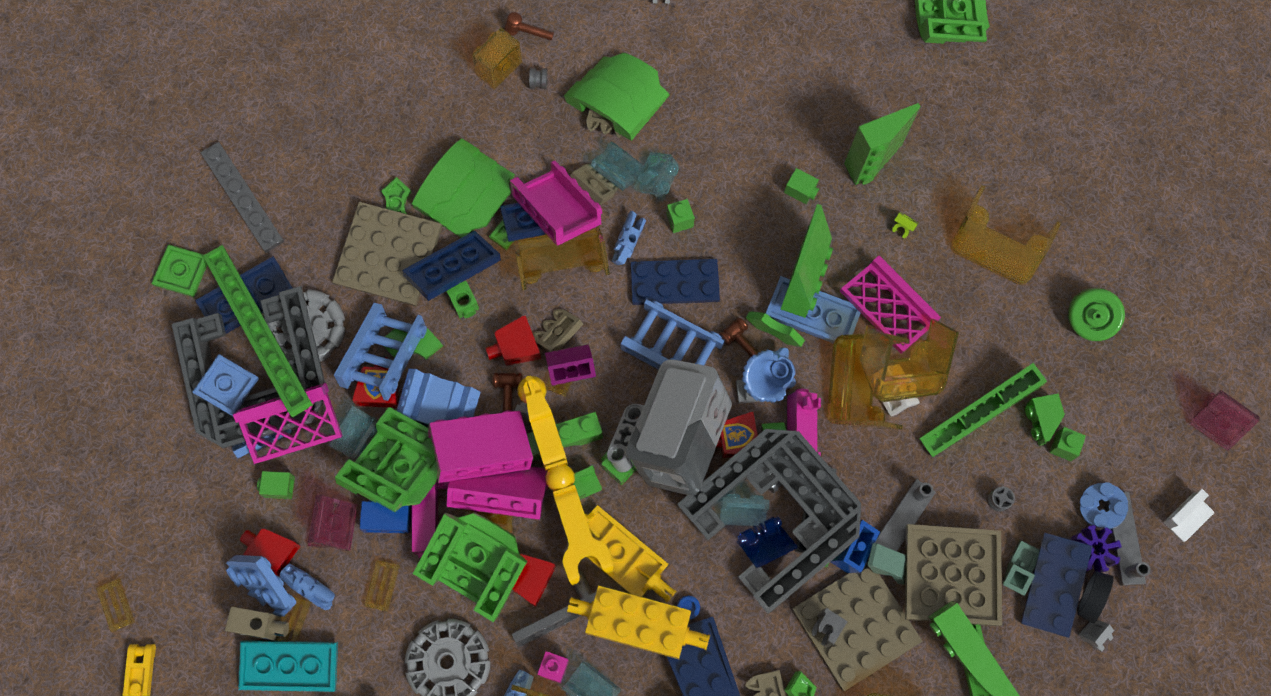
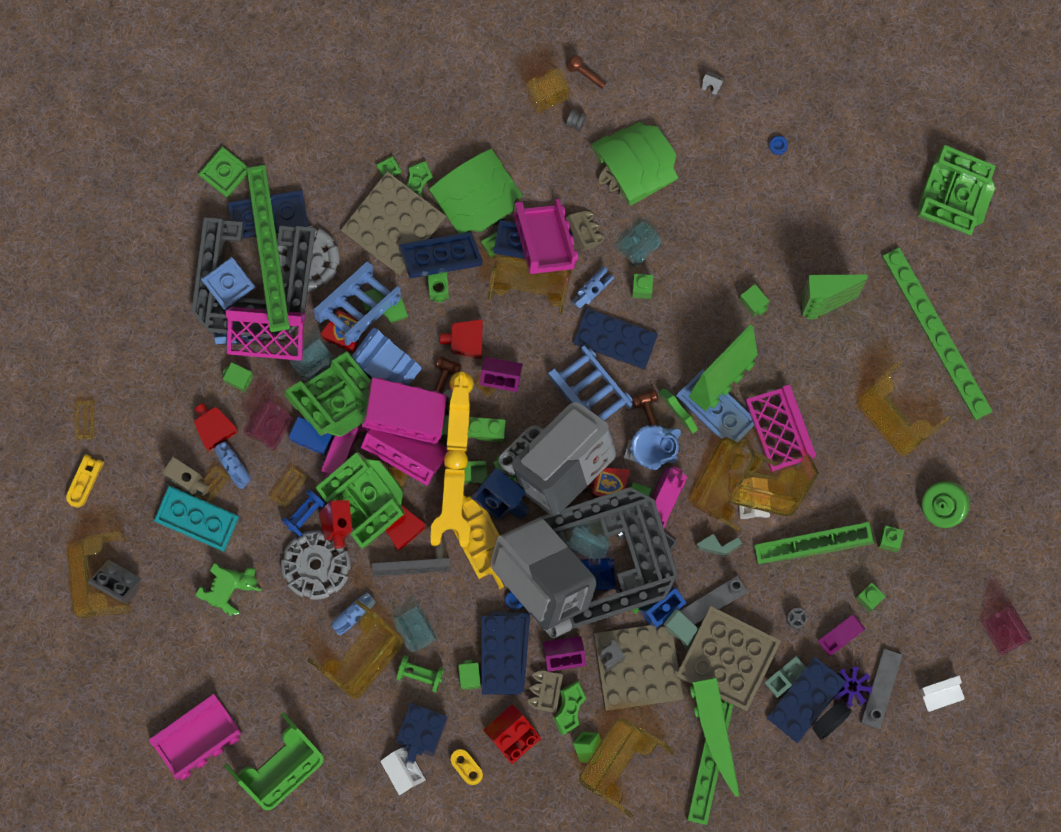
camera: 25 degrees right, 5 degrees up
(242, 197) = (295, 128): flat silver plate -> none
(264, 585) = (200, 447): medium blue plate -> none
(359, 195) = (389, 165): none -> bright green tile
(410, 608) = (303, 513): none -> blue hose
(452, 603) = (336, 522): none -> red torso
(553, 667) = (393, 601): dark pink brick -> none
(558, 331) = (504, 342): dark tan plate -> none
(617, 166) = (609, 223): clear light blue bracket -> none
(625, 497) = (500, 496): none -> dark blue hinge
(638, 622) = (470, 593): yellow plate -> none
(714, 566) = (543, 575): none -> light grey piece
(753, 28) = (778, 145): none -> blue tile
(771, 646) = (564, 653): none -> magenta brick
(877, 457) = (712, 545): none -> sand green slope
(905, 222) = (828, 366): lime tile -> none
(999, 150) = (937, 334): none -> bright green plate
(1046, 415) = (865, 568): bright green slope -> none
(1057, 497) = (841, 634): none -> magenta slope
(1058, 373) = (891, 539): none -> bright green brick
(1097, 634) = (820, 749): light grey tile -> none
(1107, 492) = (885, 662): medium blue plate -> none

